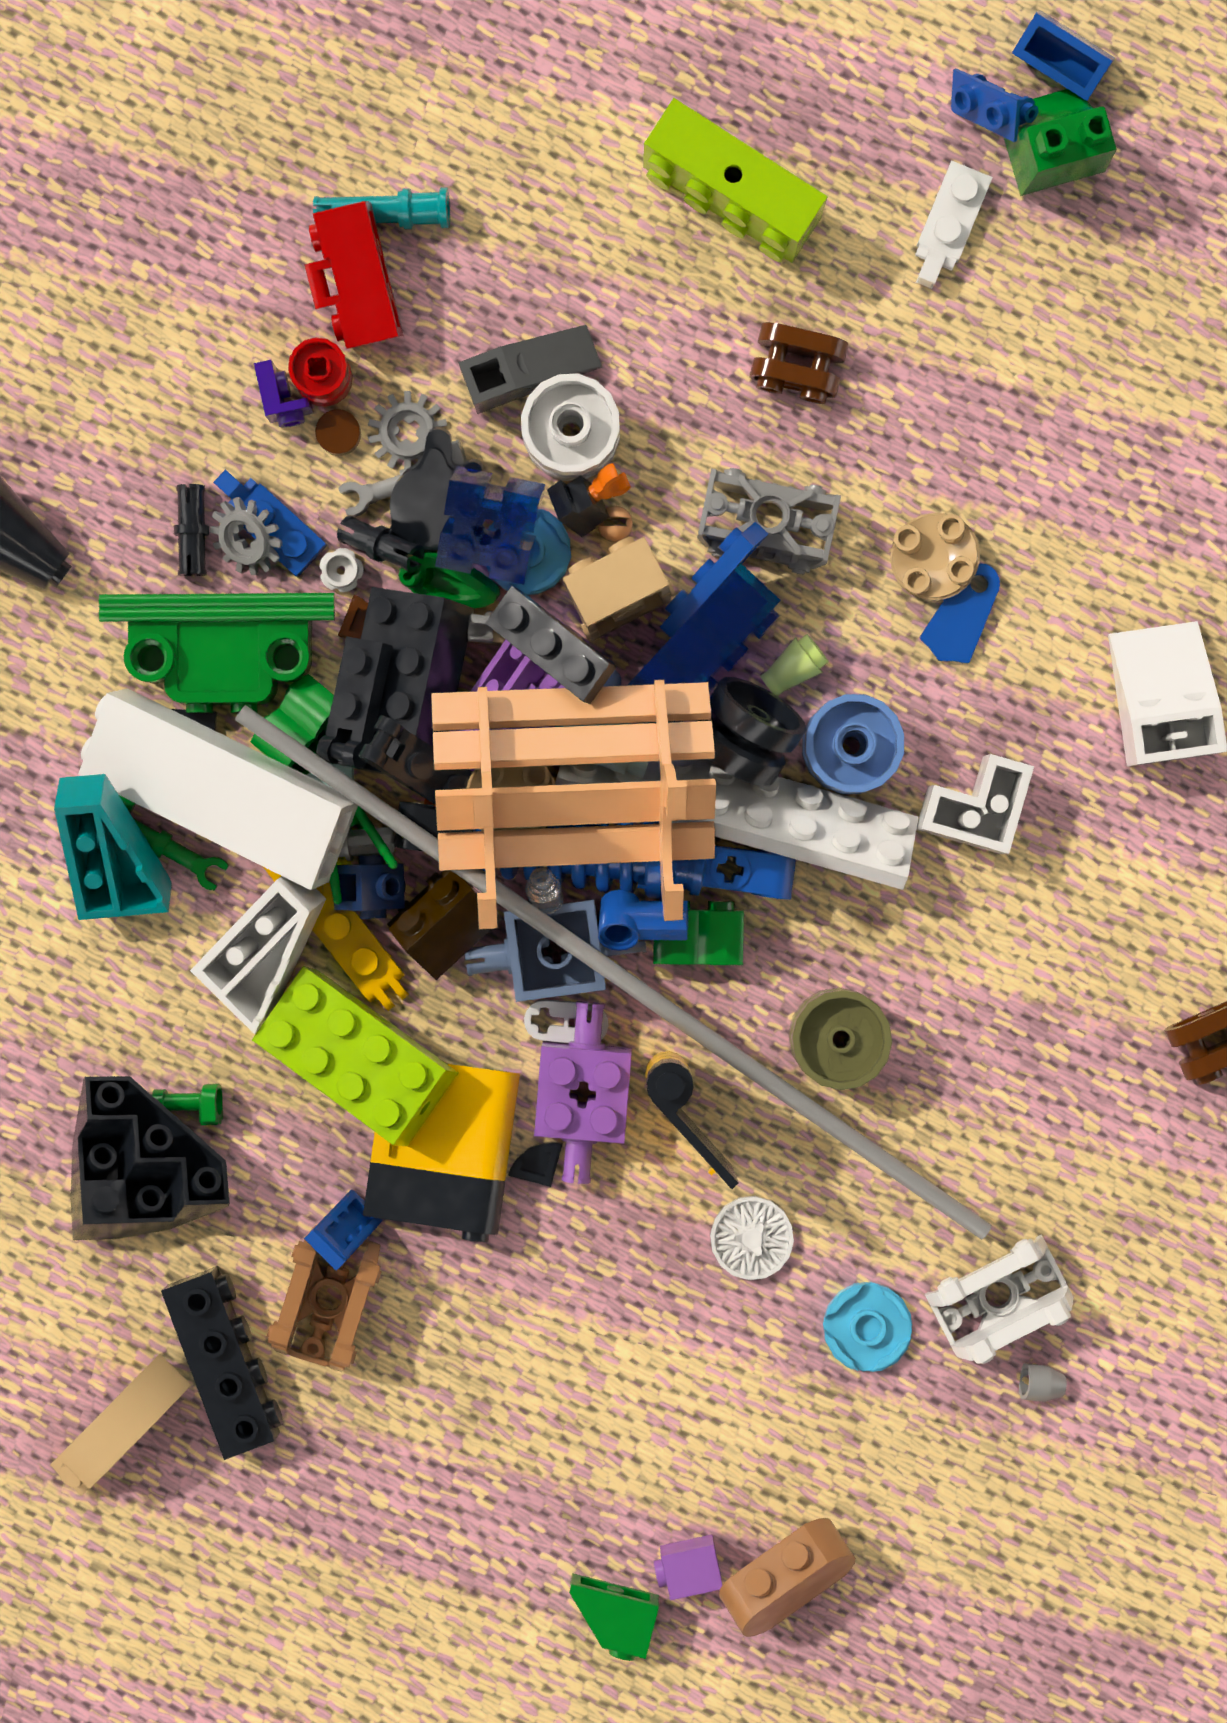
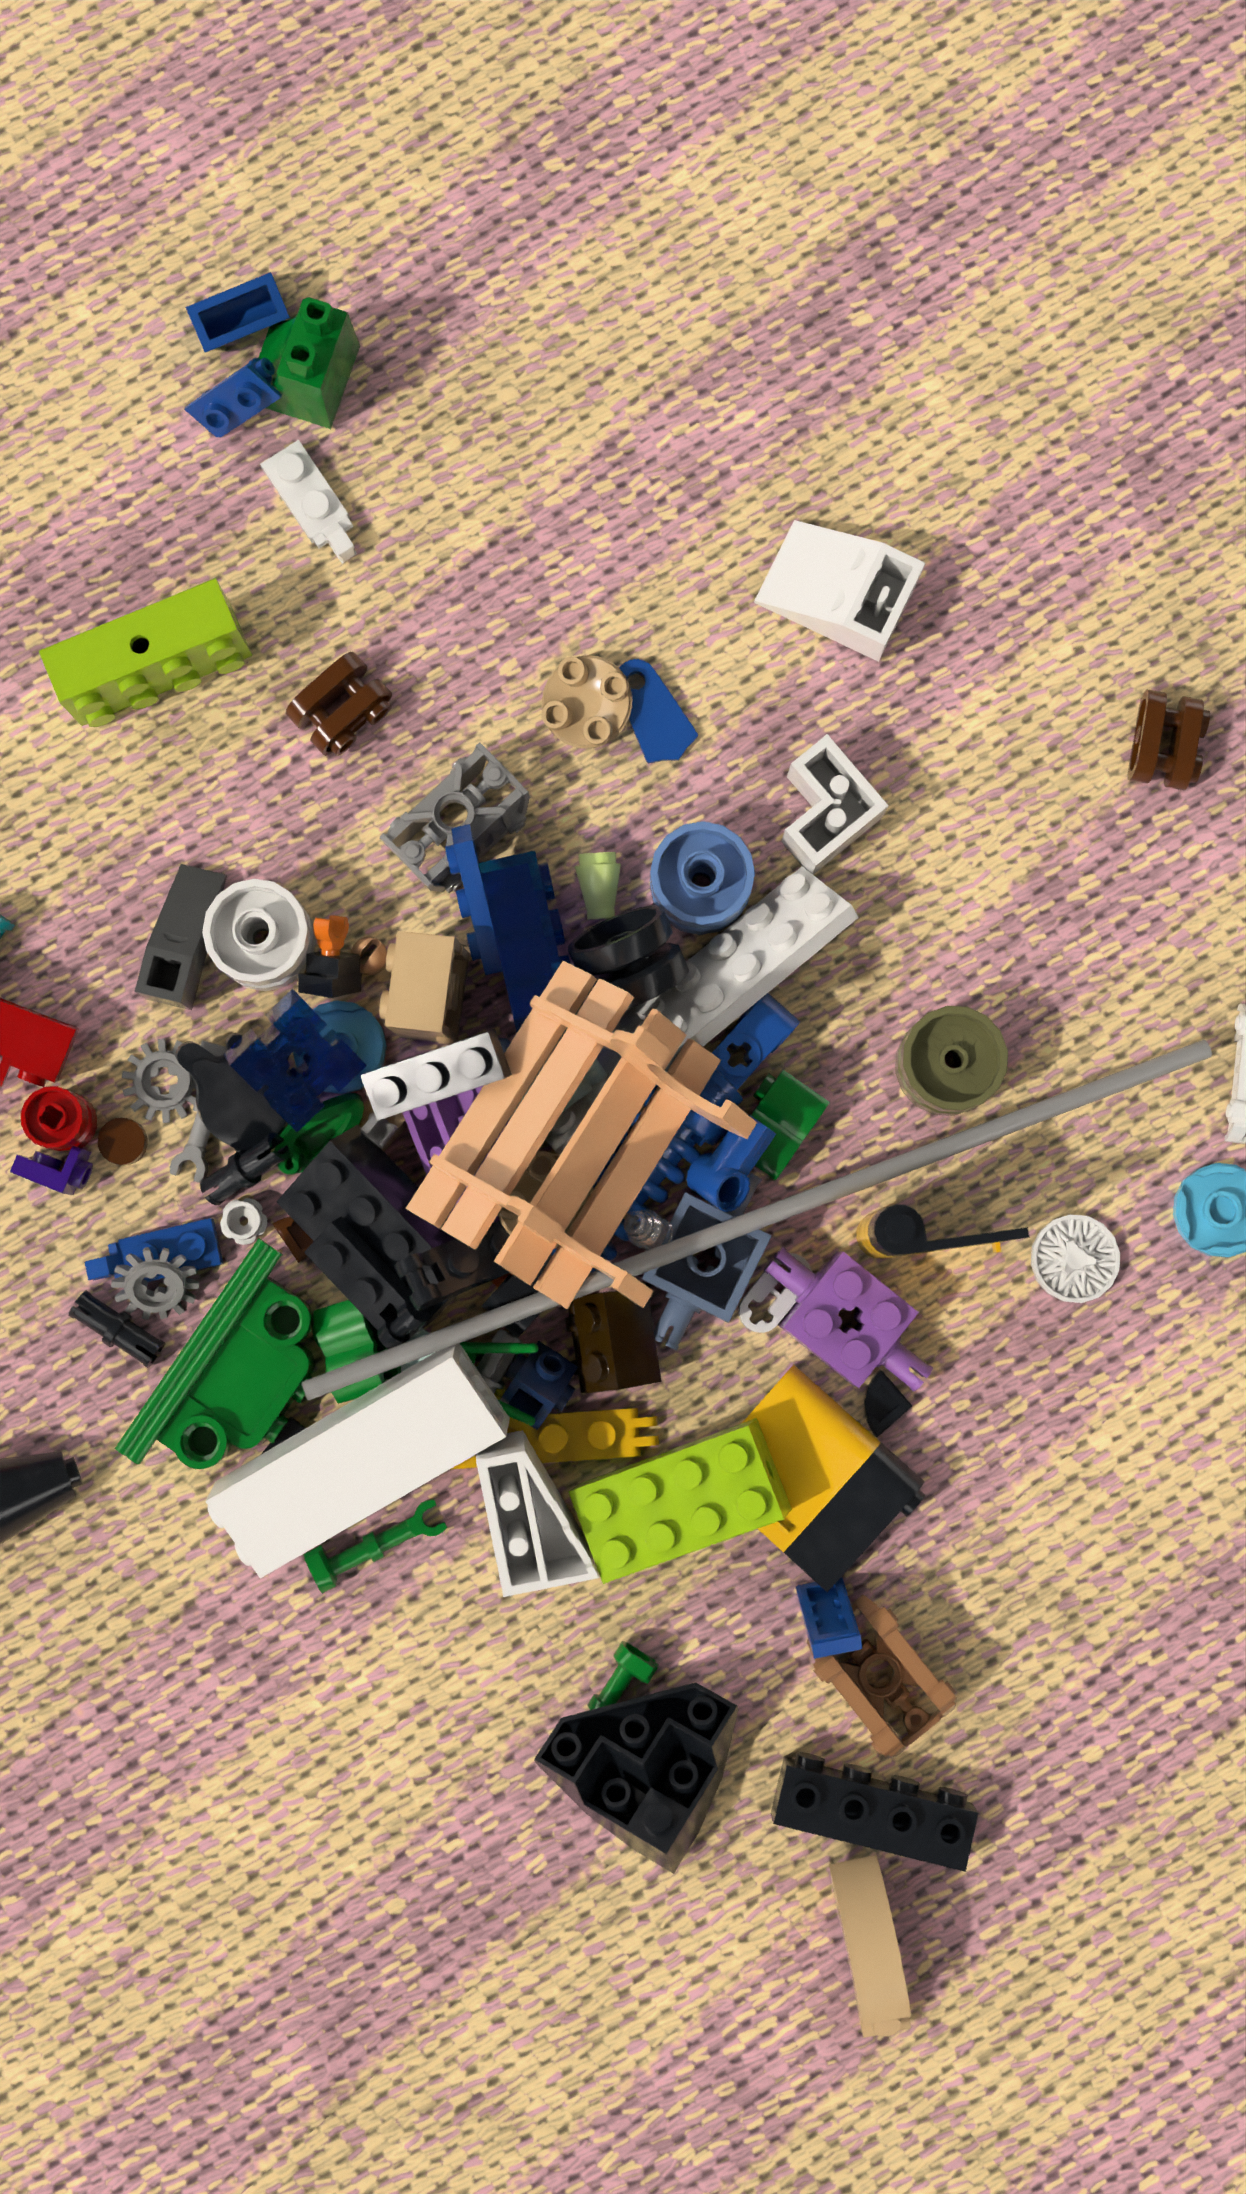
camera: 50 degrees left, 5 degrees down
(106, 852) = (347, 1599): teal wedge -> none

